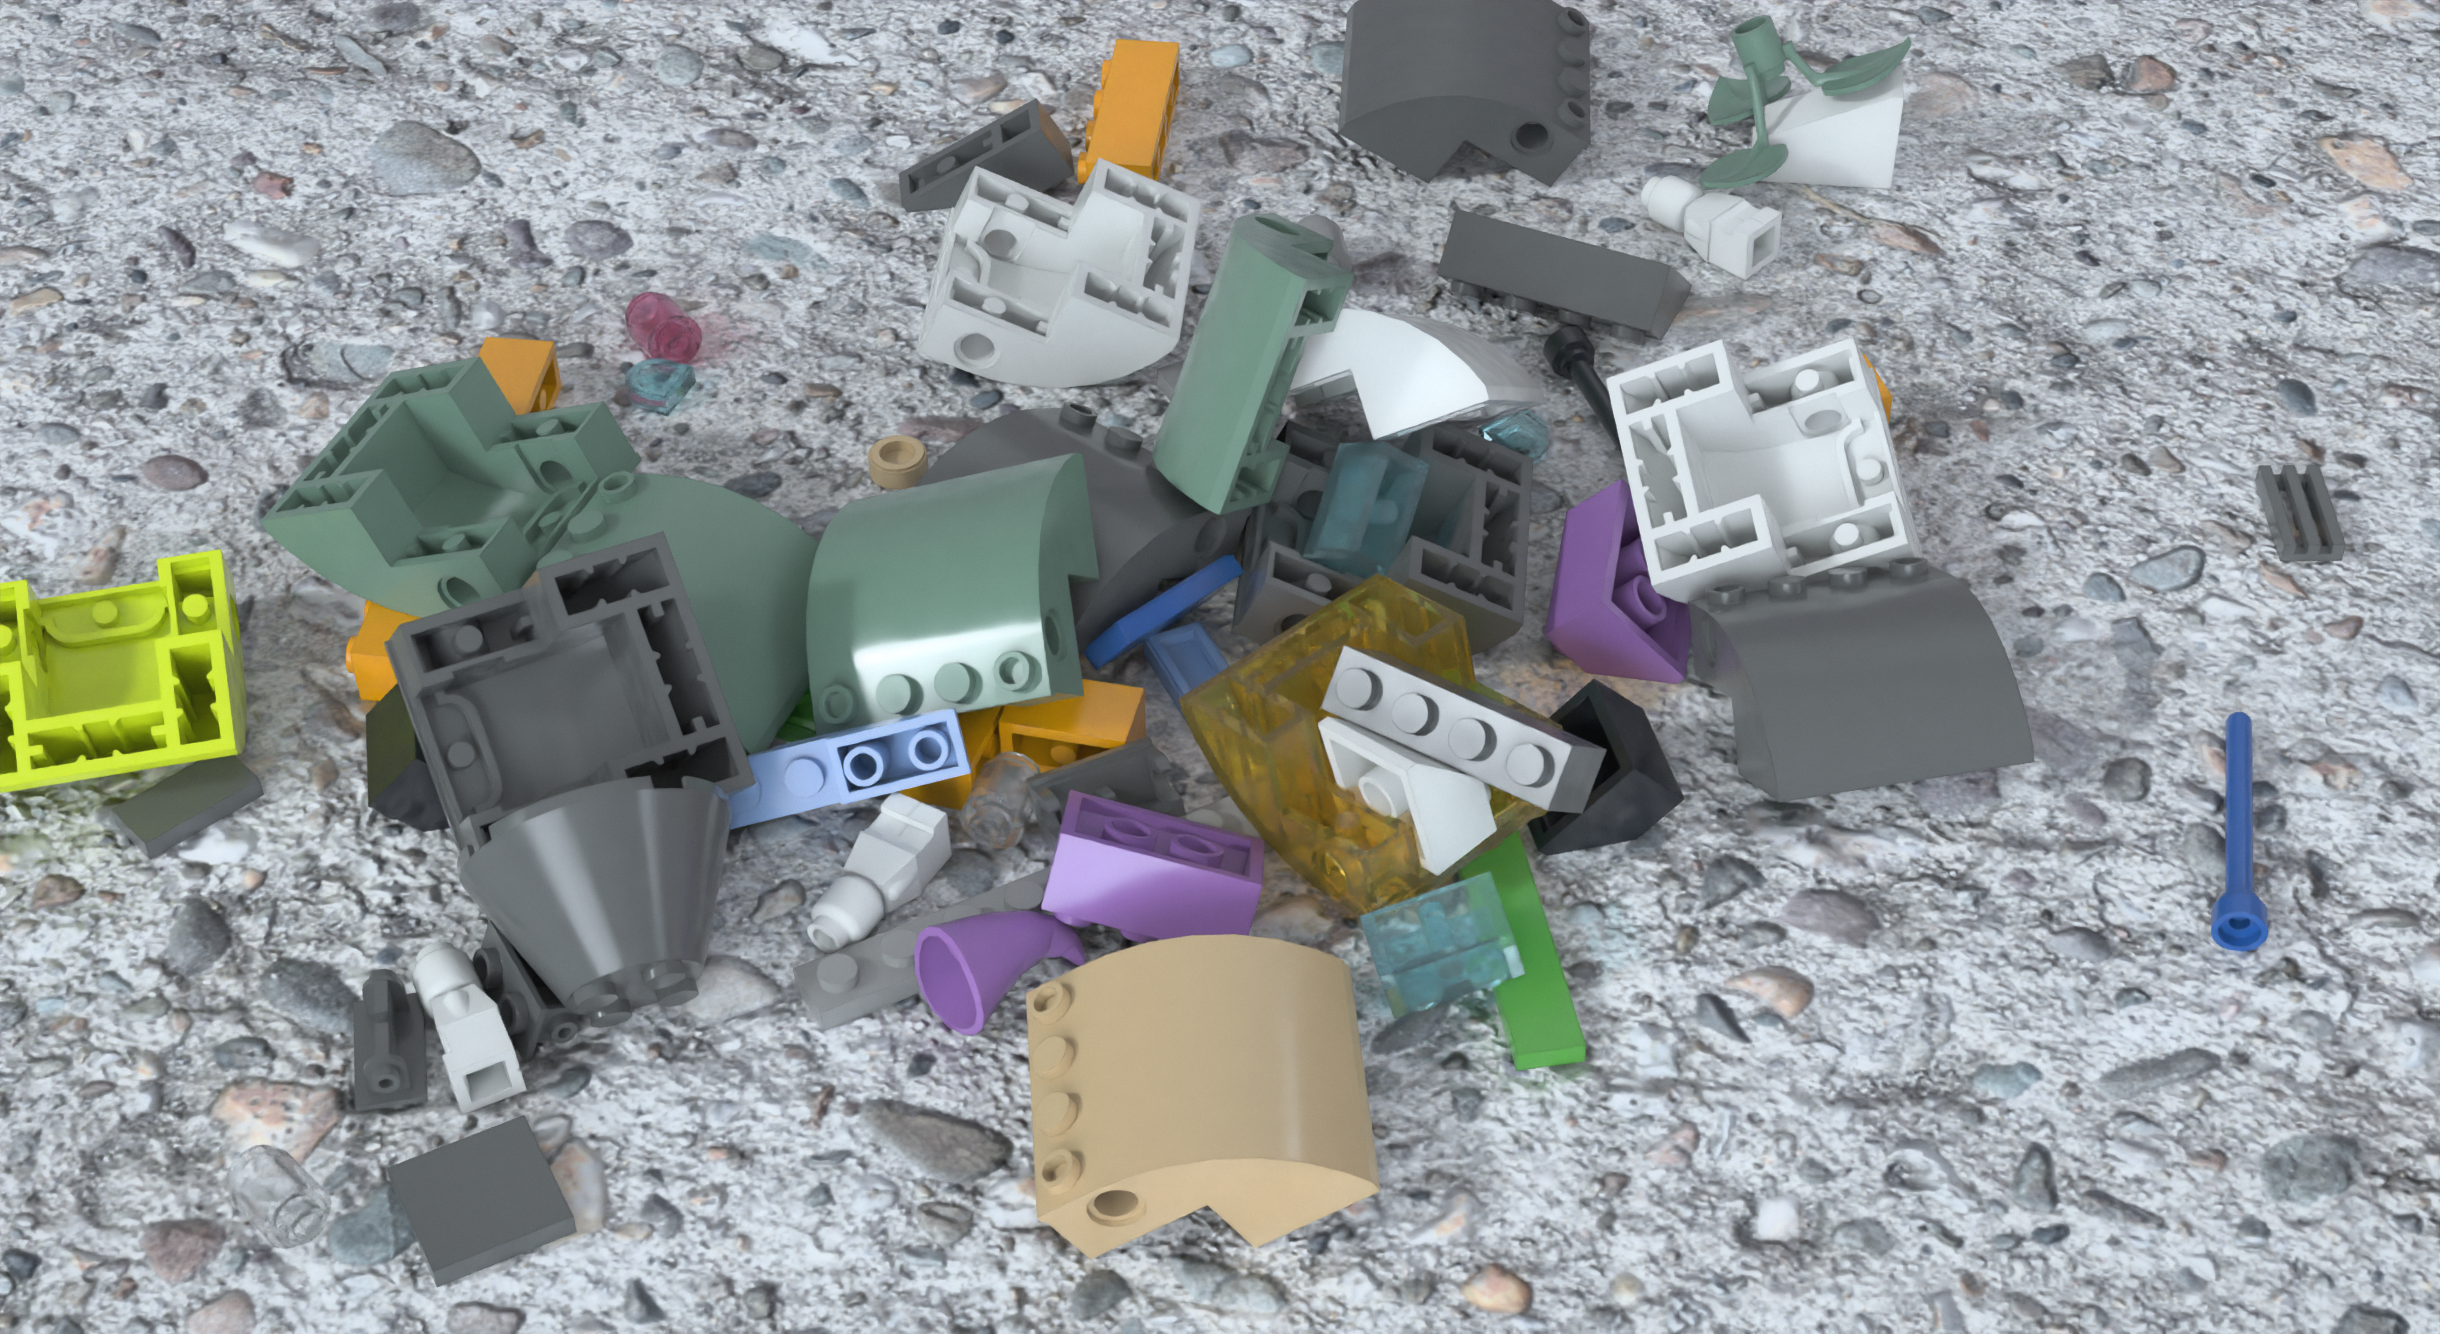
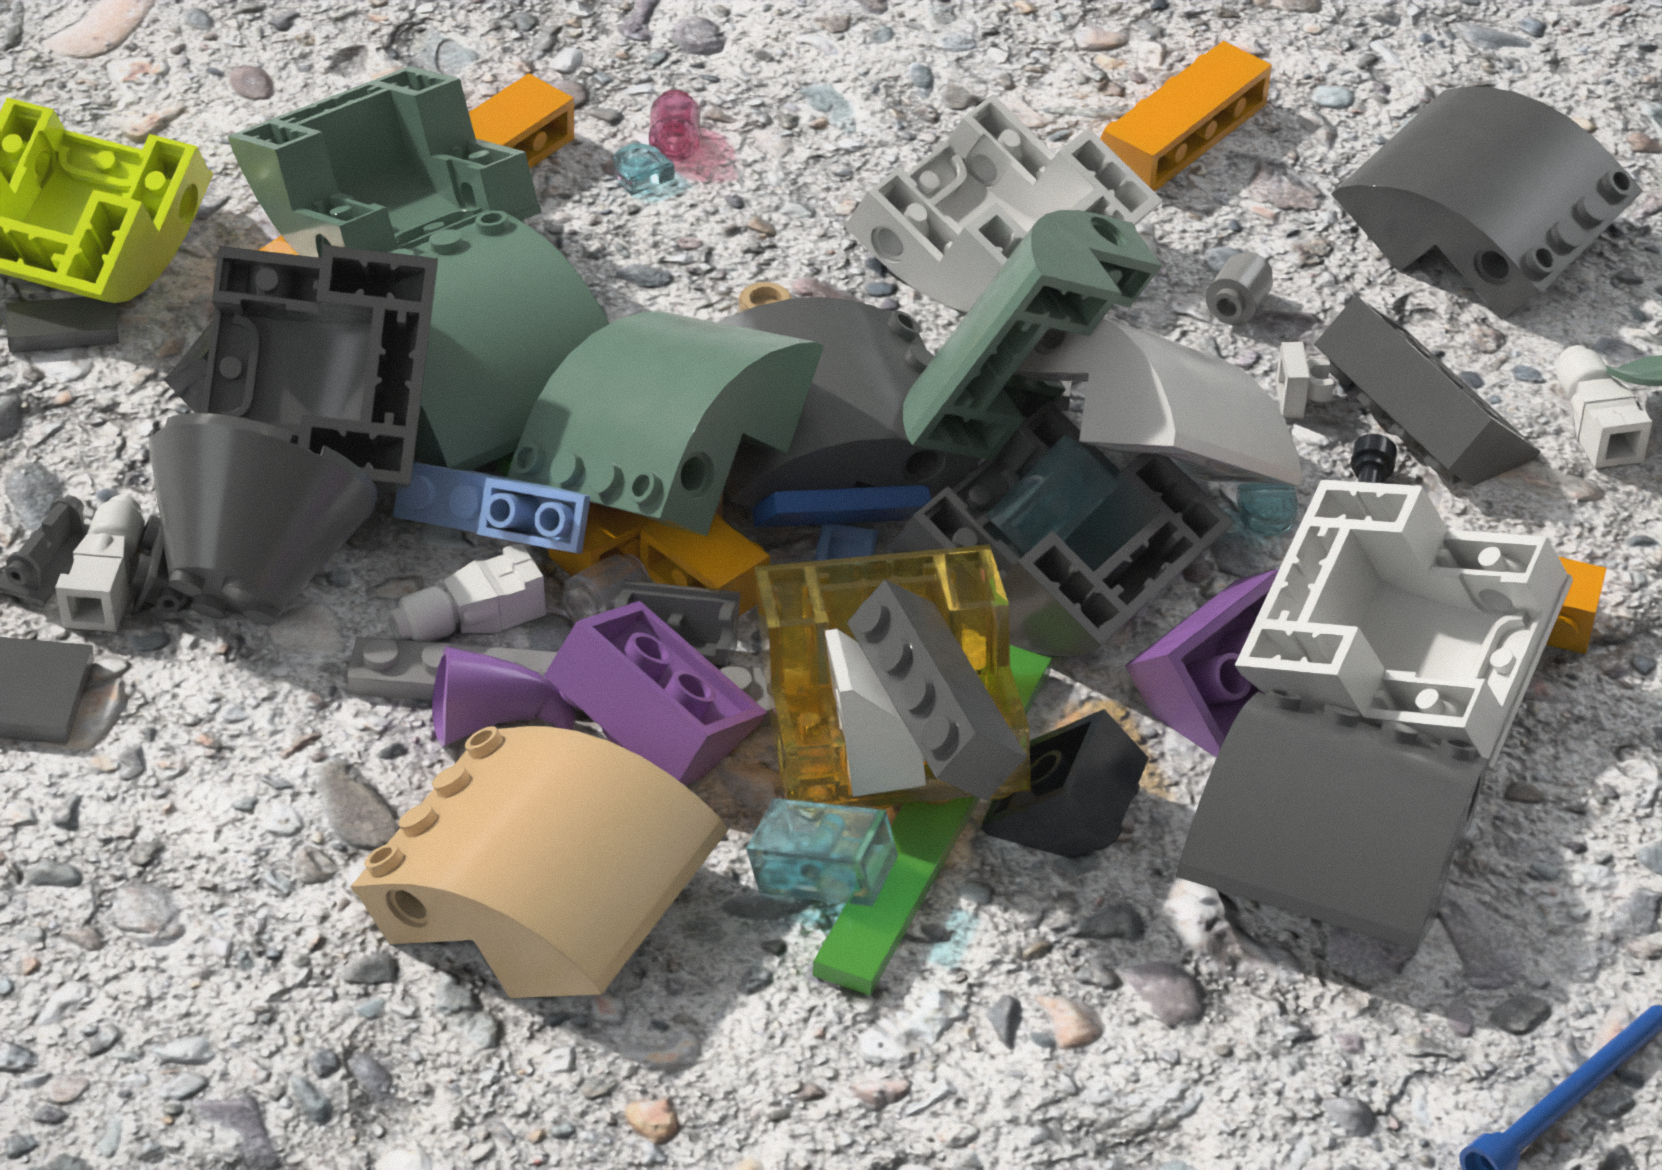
camera: 30 degrees right, 0 degrees up
(1018, 146) = (1050, 101): dark grey slope -> none
(1447, 303) = (1301, 380): none -> white tile

